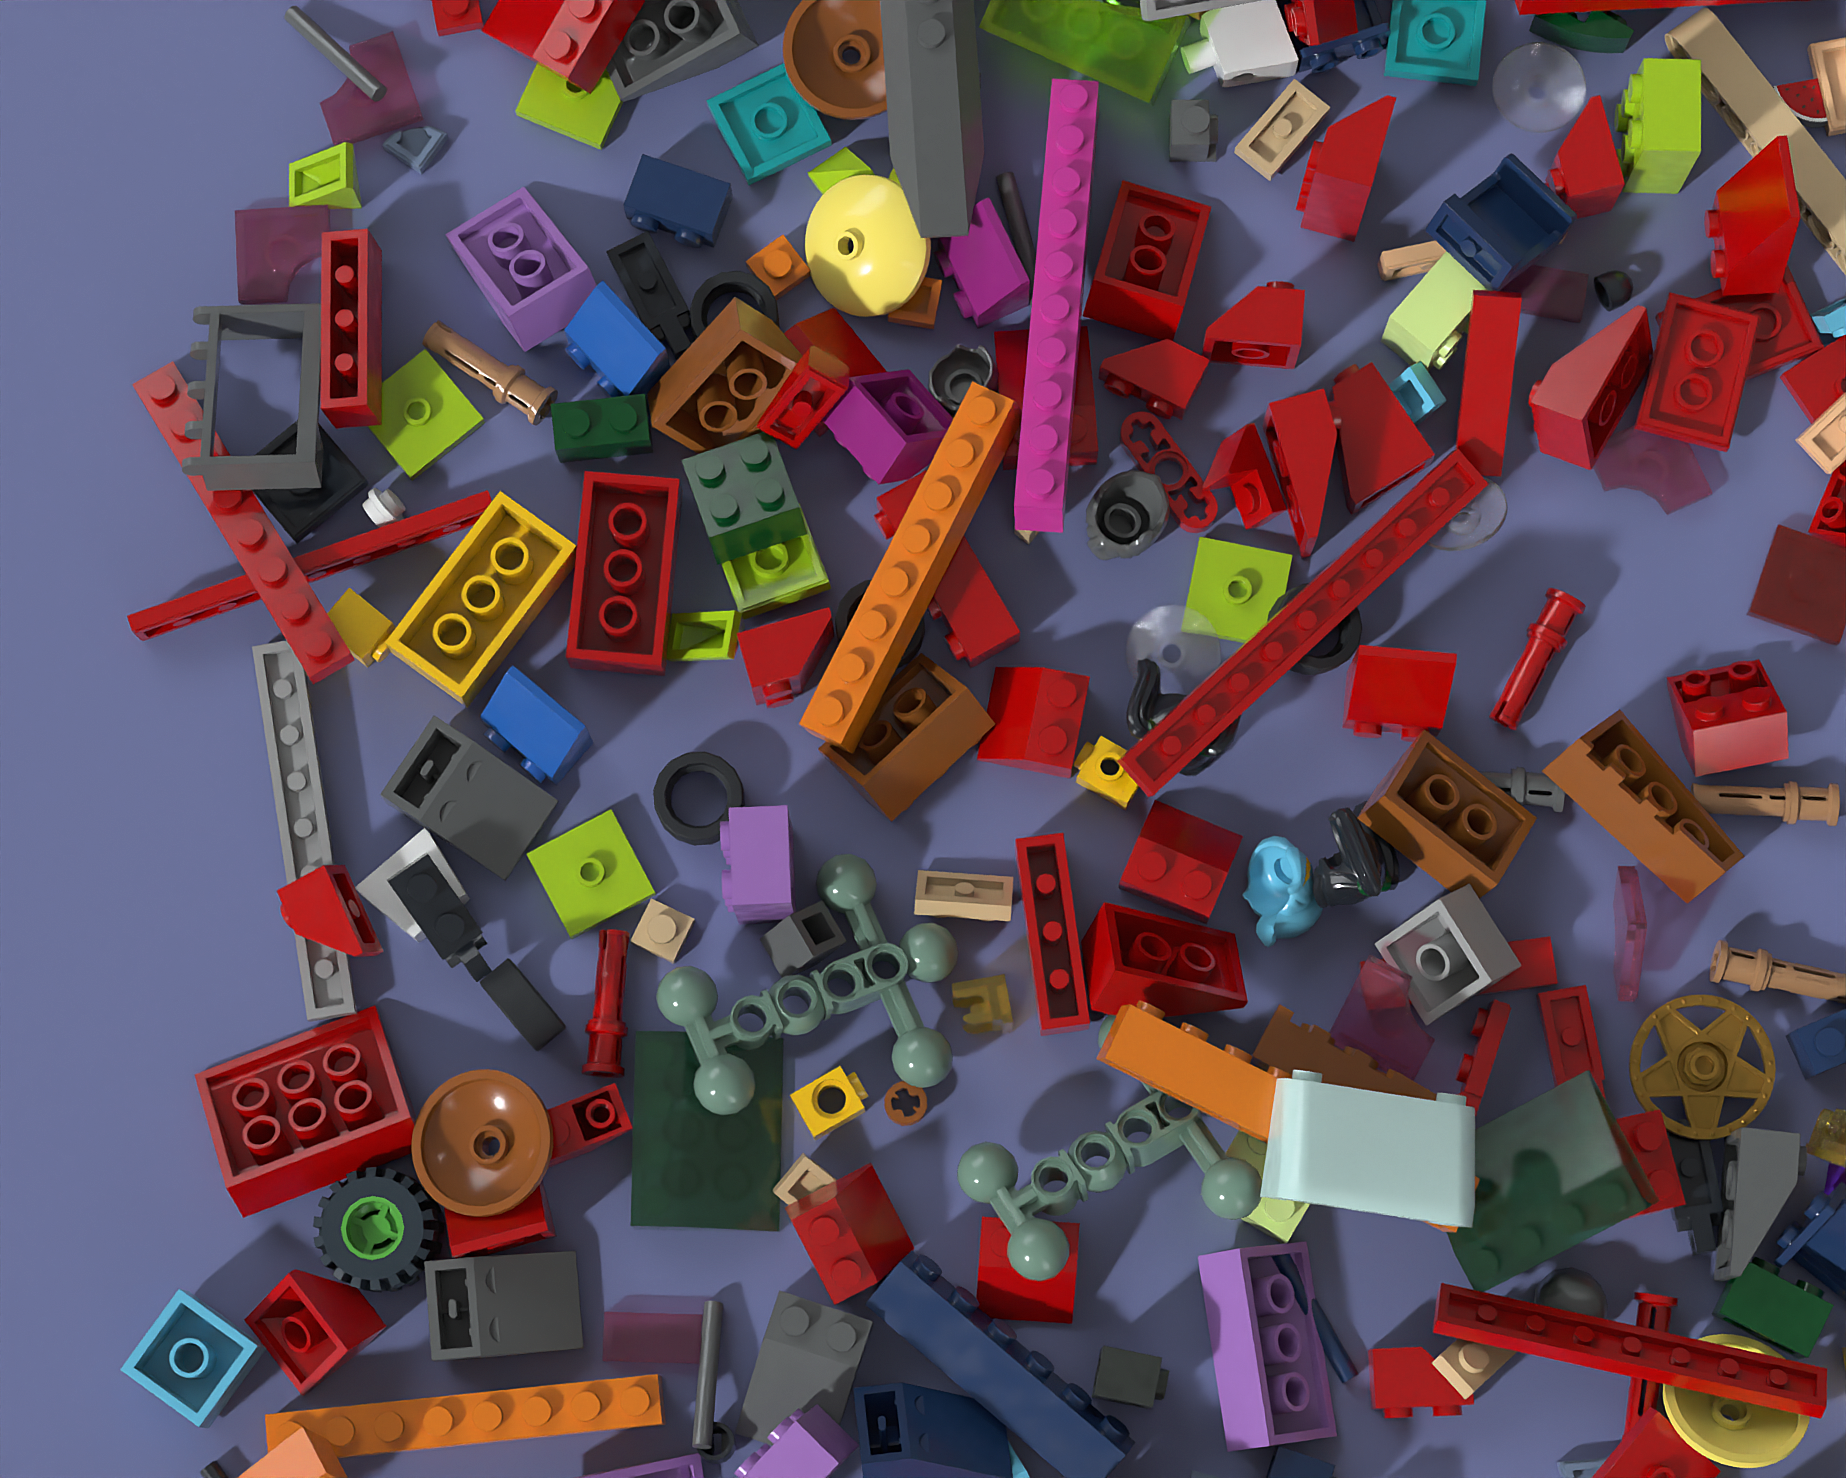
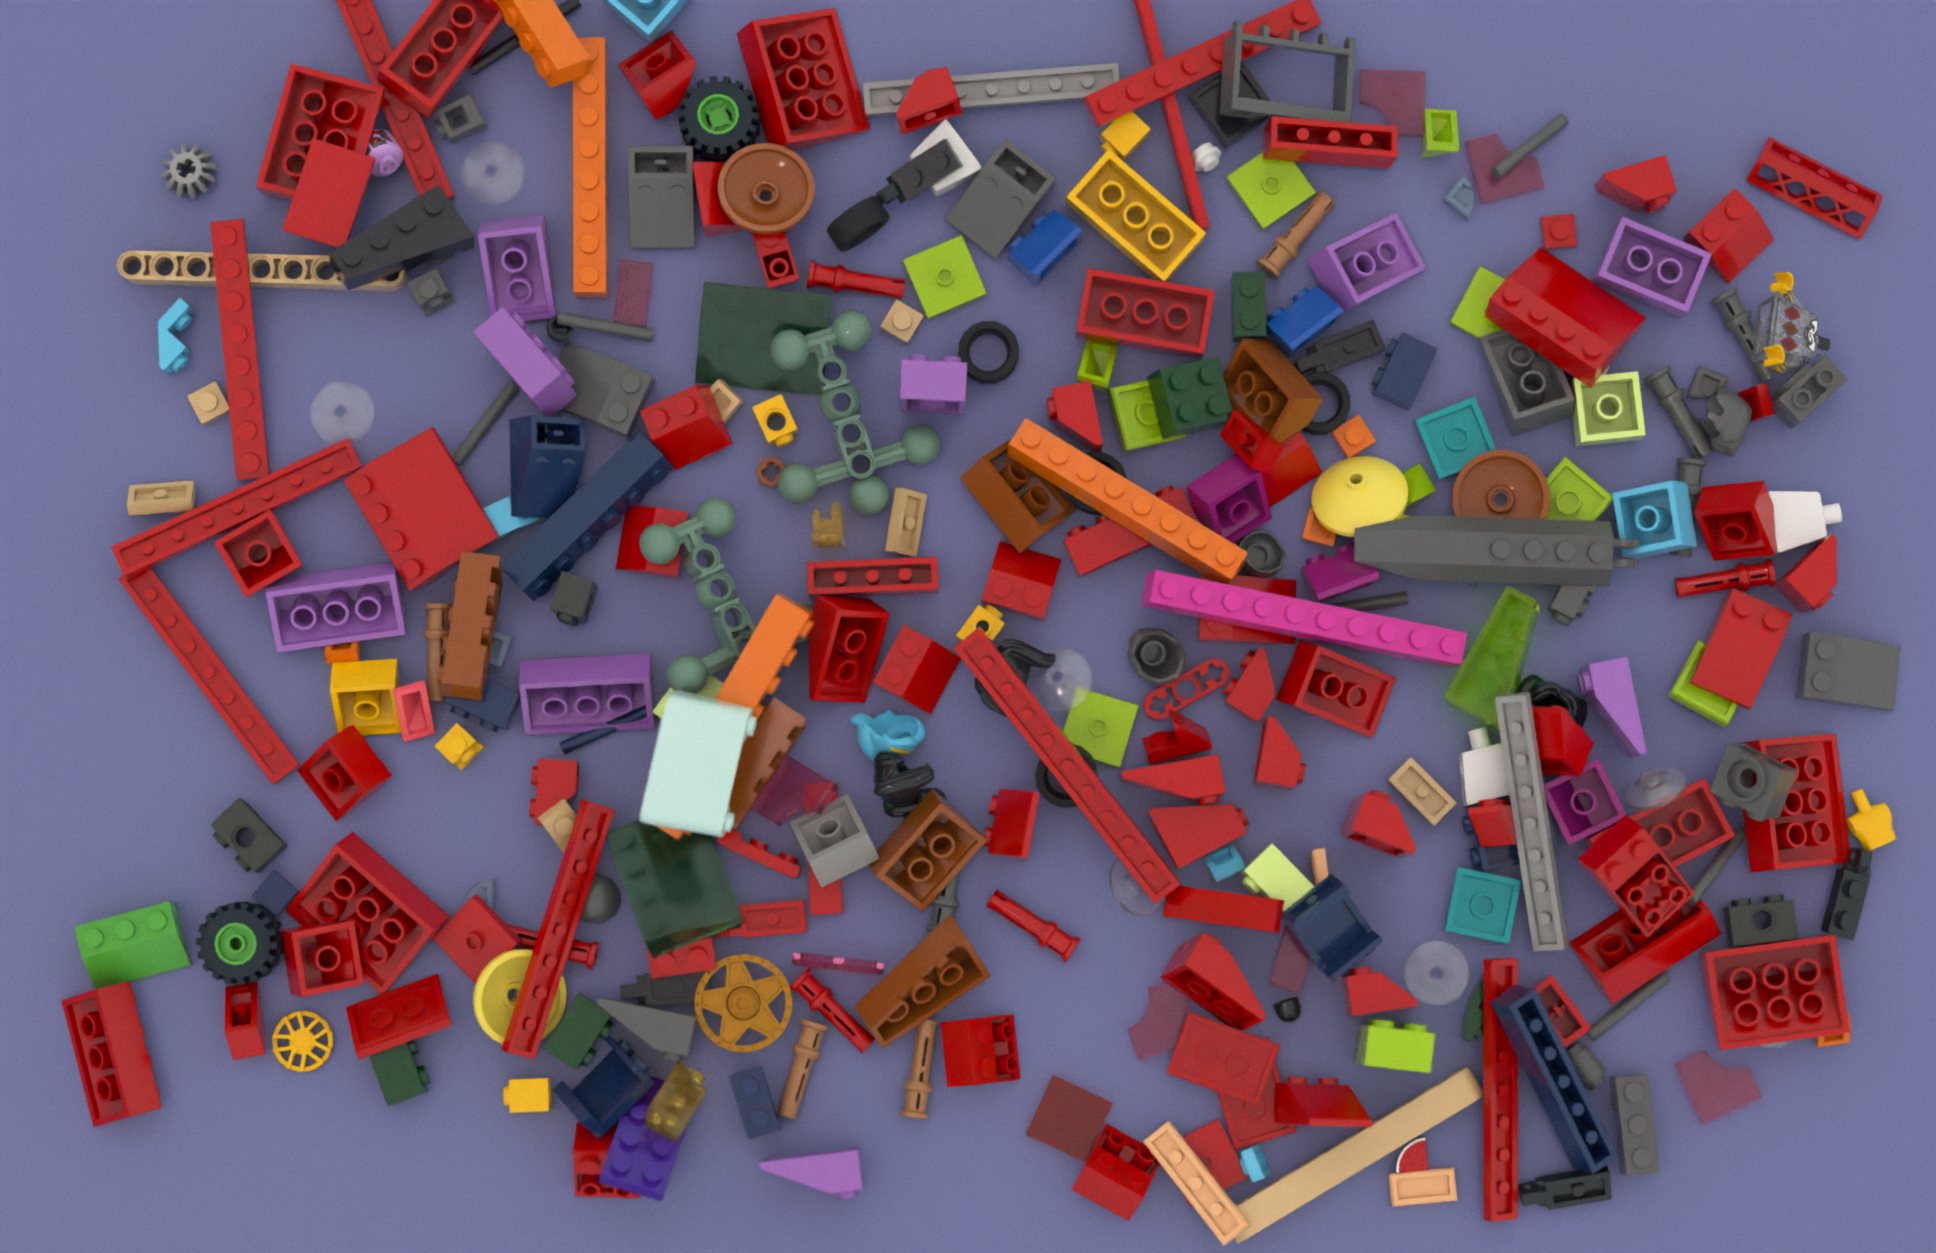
camera: 90 degrees right, 5 degrees up
(803, 939) = (884, 412): dark grey brick -> none
(1192, 131) = (1424, 729): dark grey brick -> none
(1681, 954) = (821, 1000): none -> red pin

